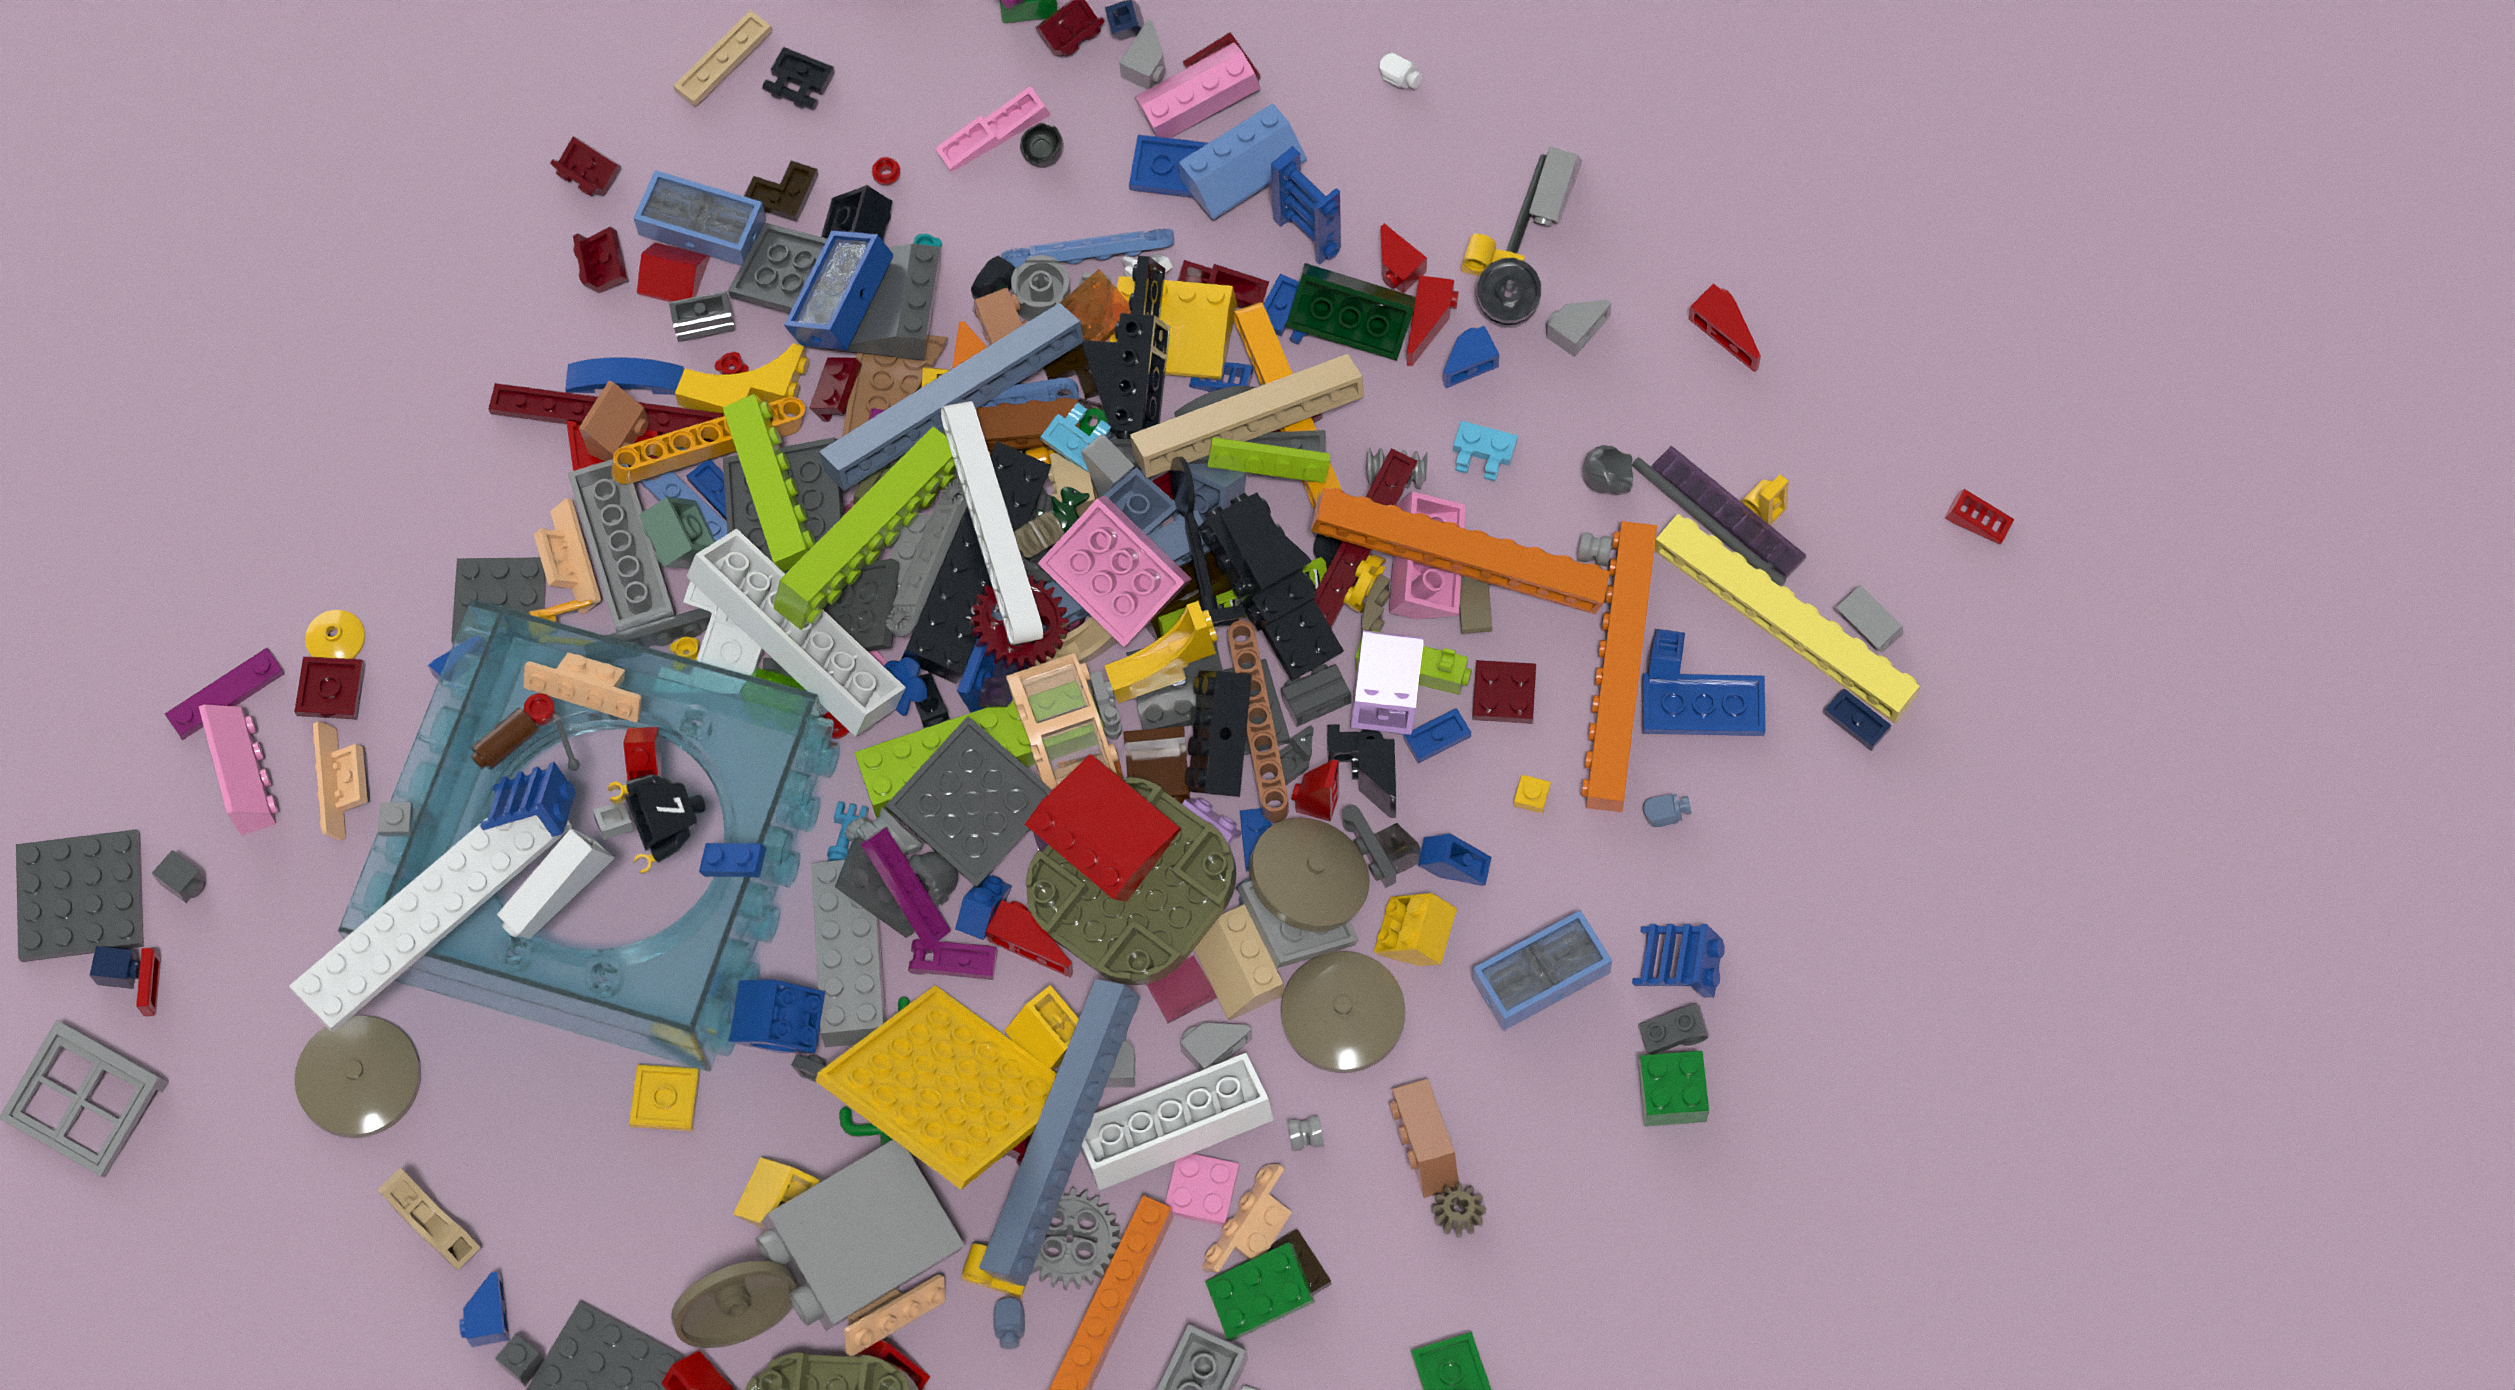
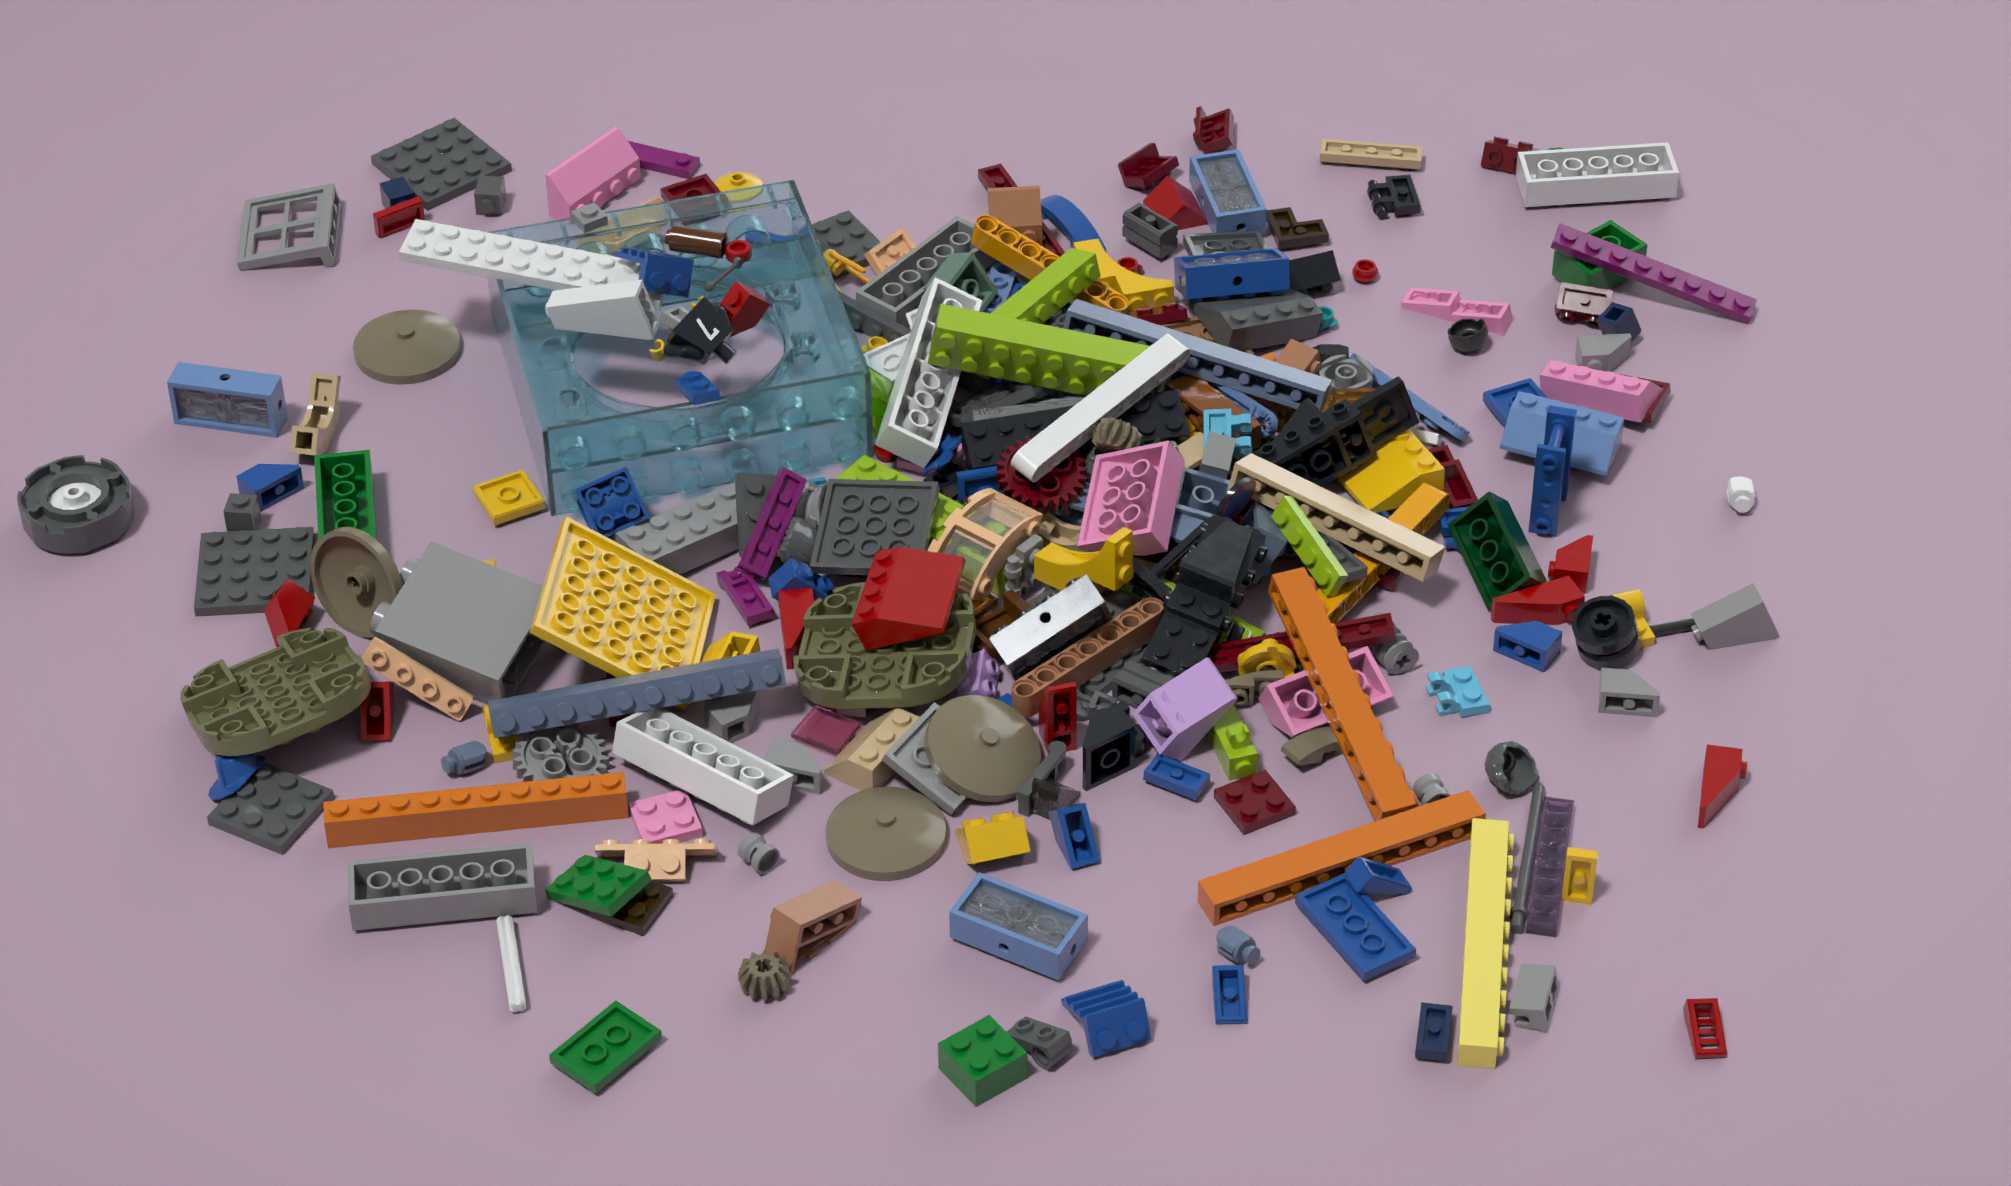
camera: 55 degrees right, 25 degrees down
(338, 1291) = (227, 399): none -> medium blue brick
(585, 684) = (776, 260): light nougat bracket -> none
(597, 1263) = (345, 492): none -> green brick
(1532, 793) = (1178, 859): yellow plate -> none
(1713, 849) = (1229, 994): none -> blue slope

